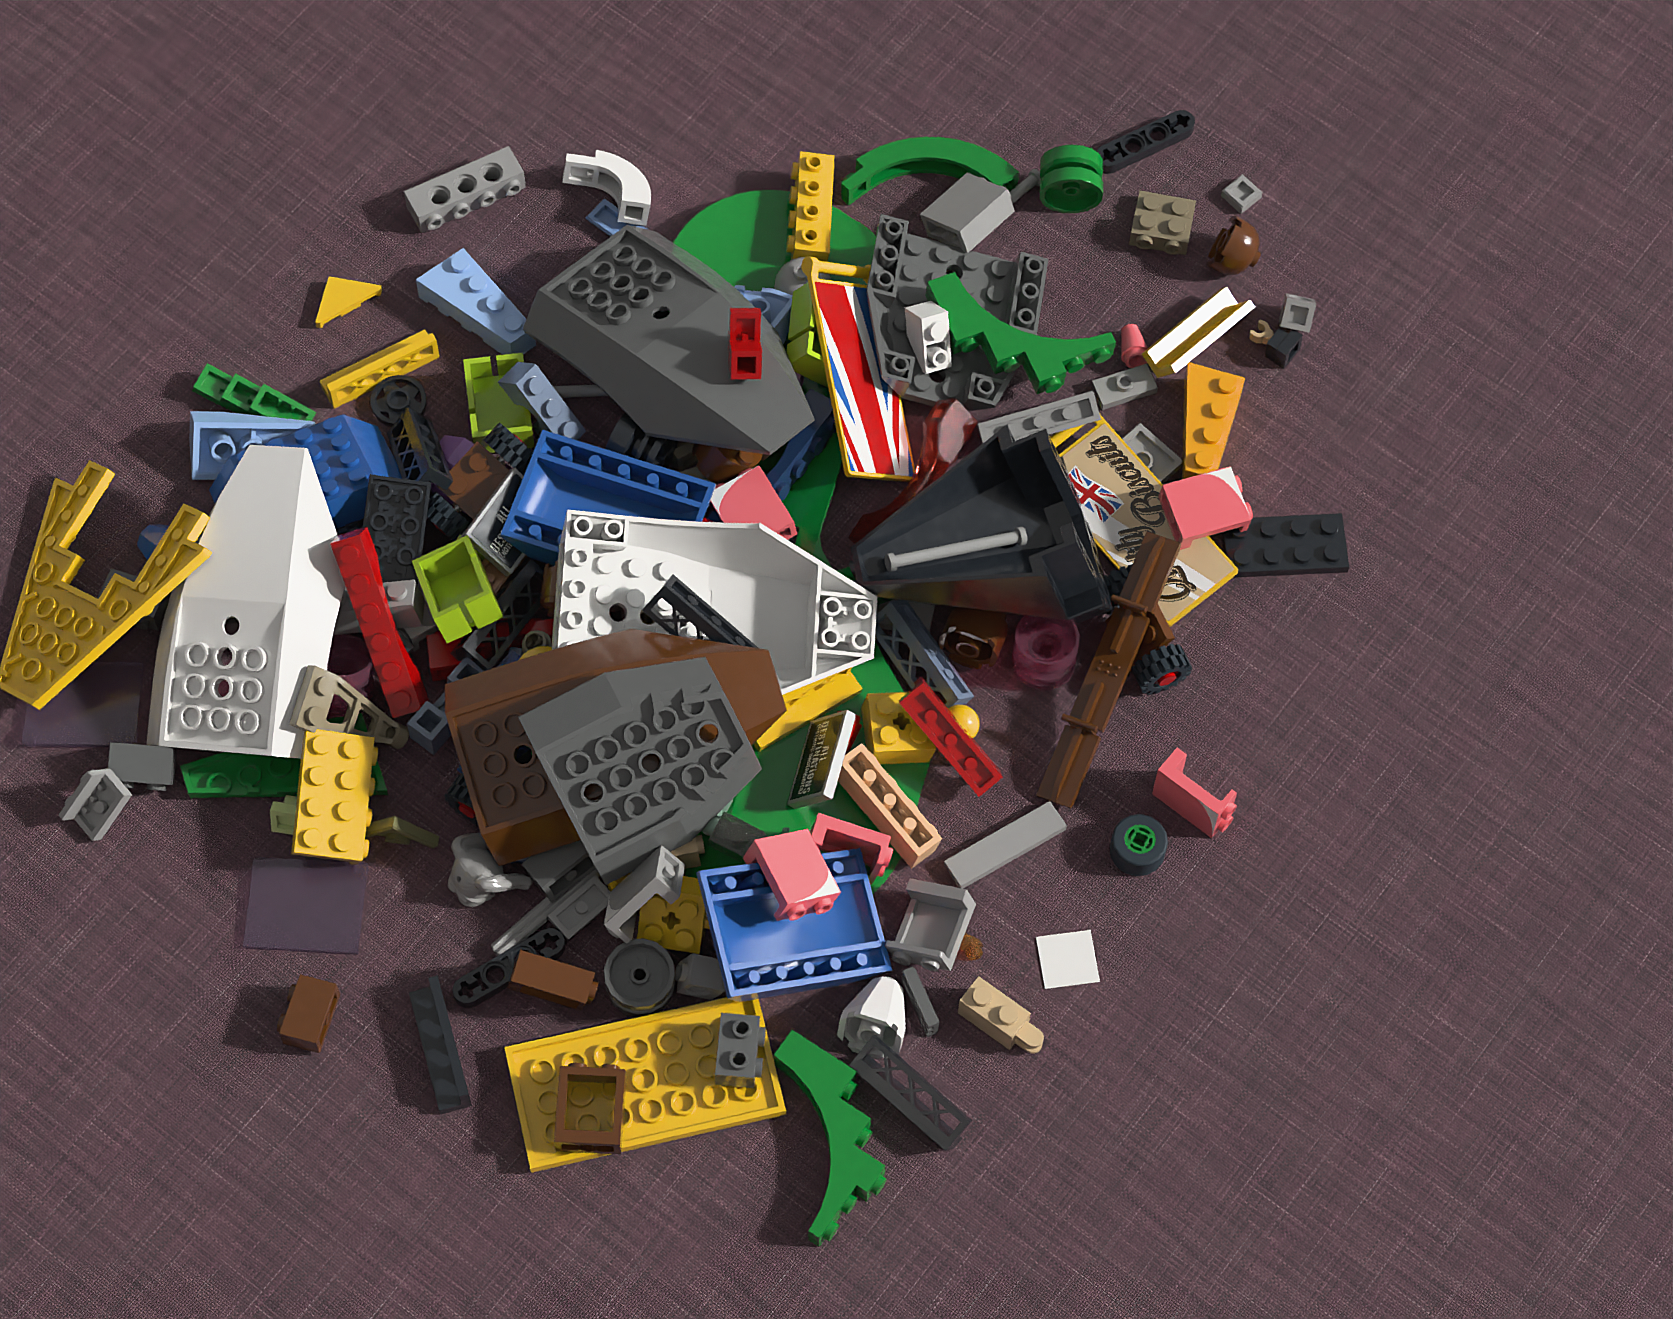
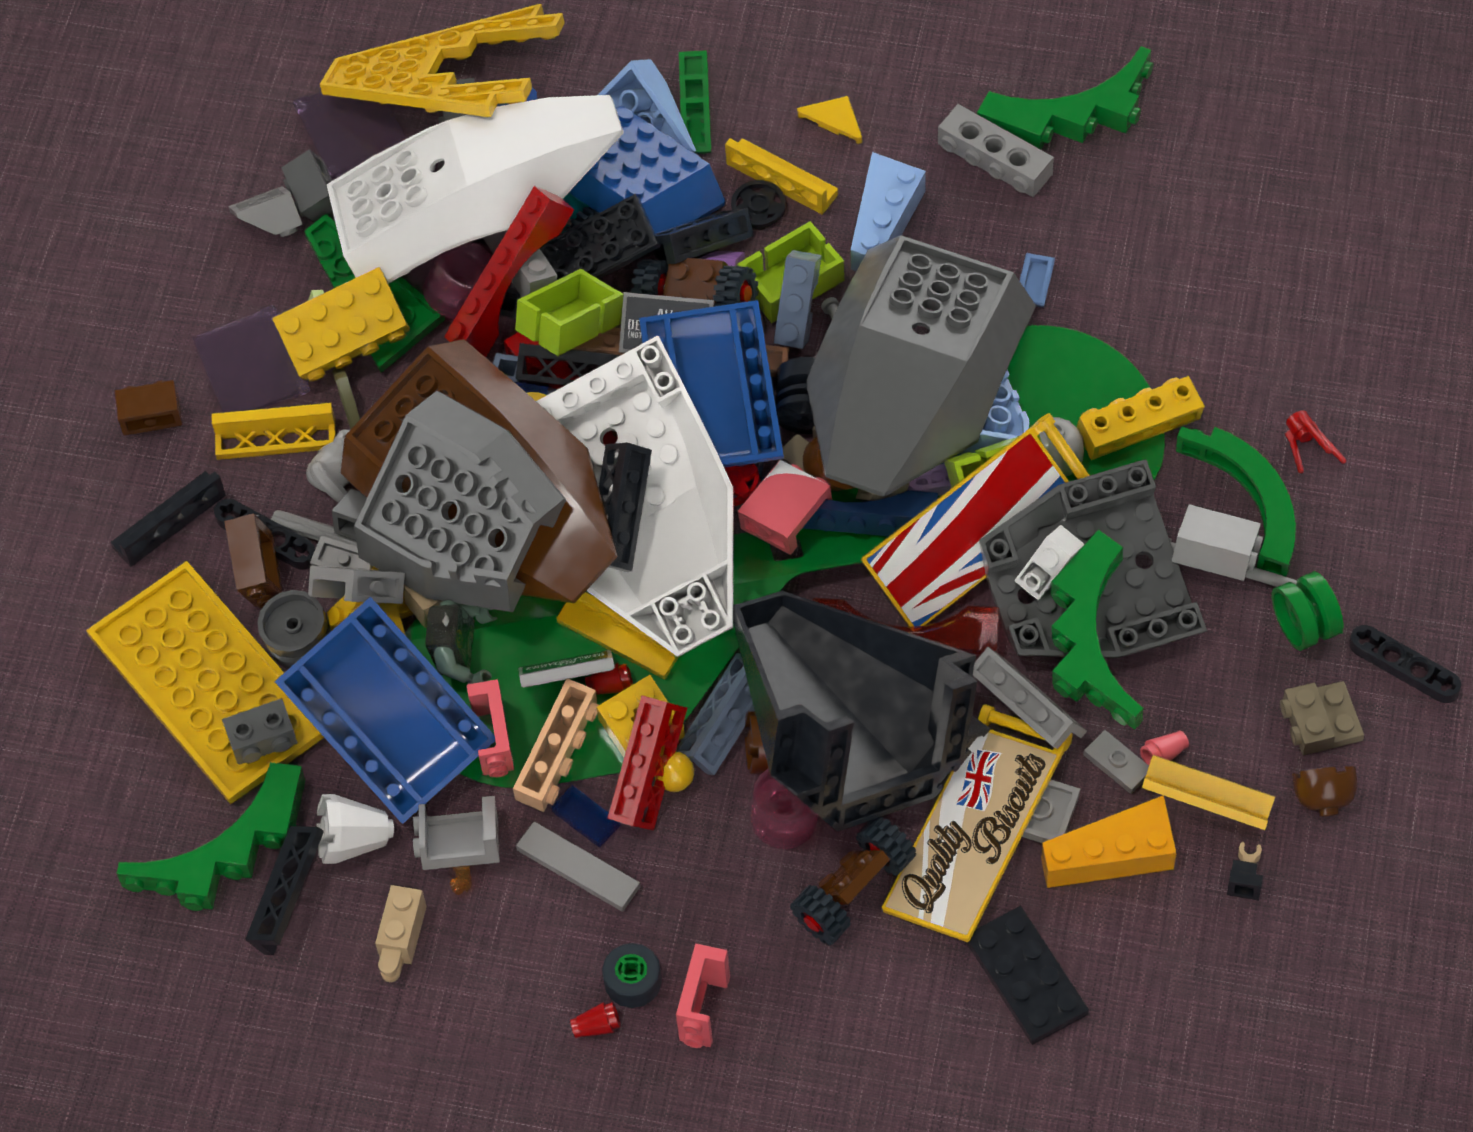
camera: 70 degrees right, 5 degrees down
(96, 802) = (262, 170): light grey bracket -> none
(144, 815) = (270, 211): none -> light grey slope
(314, 704) = (405, 260): dark tan plate -> none
(390, 909) = (249, 424): none -> yellow fence
(468, 114) = (1076, 115): none -> green arch
(583, 1140) = (163, 665): reddish brown window -> none
(616, 178) = (1079, 241): white arch -> none
(745, 343) = (909, 400): red brick -> none
(795, 873) = (422, 683): coral panel -> none
(886, 101) = (1304, 429): none -> red plant
(893, 561) = (789, 632): light grey bar -> none
(920, 1001) = (384, 860): dark grey tile -> none
(960, 817) = (585, 816): none -> clear blue tile
(1067, 959) = (492, 969): white sticker -> none
(1108, 669) = (789, 864): reddish brown piece -> none
(1167, 891) = (596, 1021): none -> red cone
(1205, 505) = (1011, 876): coral panel -> none
(1241, 194) = (1401, 774): light grey tile -> none
(1297, 312) = (1285, 872): light grey brick -> none

